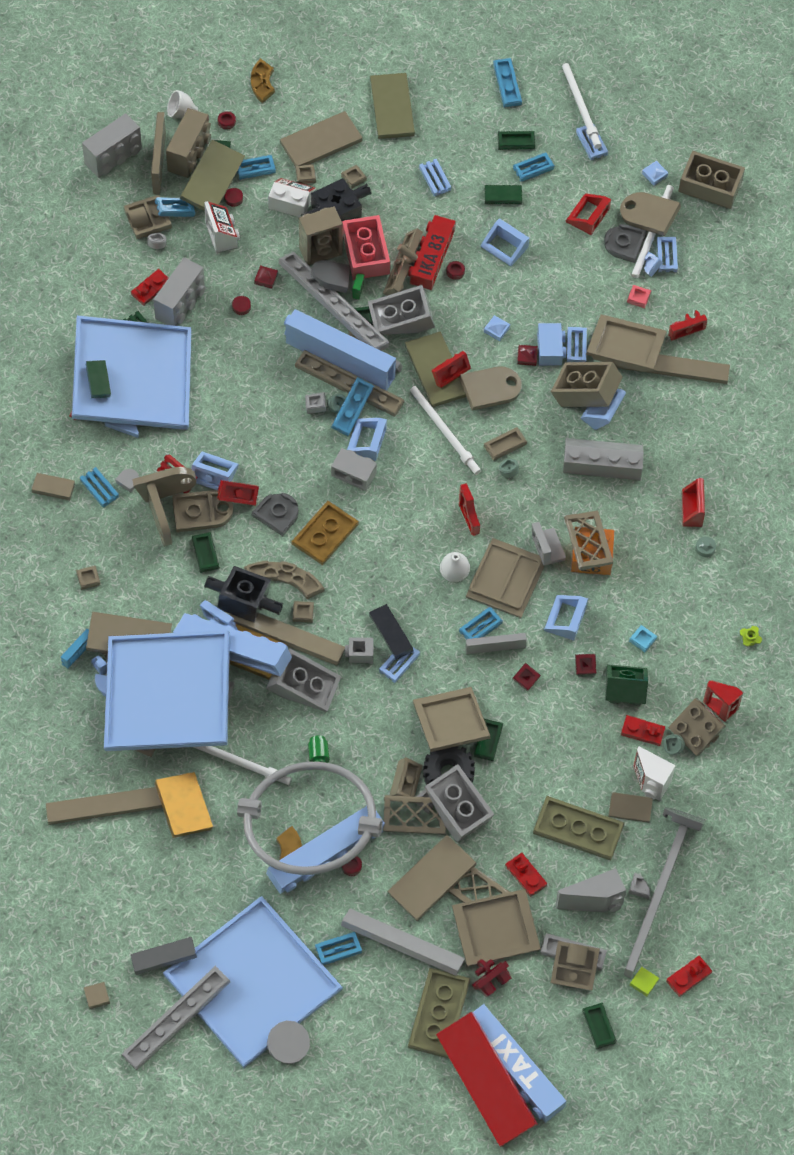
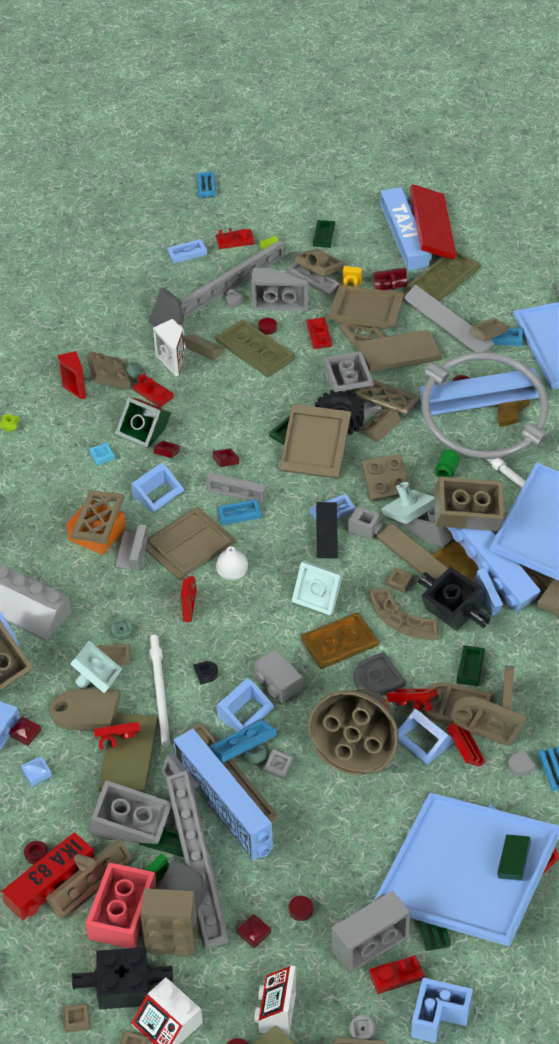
camera: 150 degrees left, 15 degrees down
(110, 268) = (439, 1003): none -> light blue brick
(260, 644) = (468, 503): none -> dark tan brick
(264, 438) = (354, 731): none -> dark tan cone
(328, 683) = (409, 505): none -> light aqua tile
(352, 933) = (489, 329): none -> dark tan tile
(364, 561) = (317, 587): none -> light aqua tile
(367, 709) = (383, 476): none -> dark tan plate
(418, 460) = (206, 671): none -> black tile
(501, 412) = (95, 668): none -> light aqua tile
(532, 963) = (352, 275): none -> yellow tile
(582, 862) = (267, 325): none -> dark red tile
(717, 947) = (187, 253): none -> light blue tile
(774, 1068) = (207, 193): none -> dark azure tile

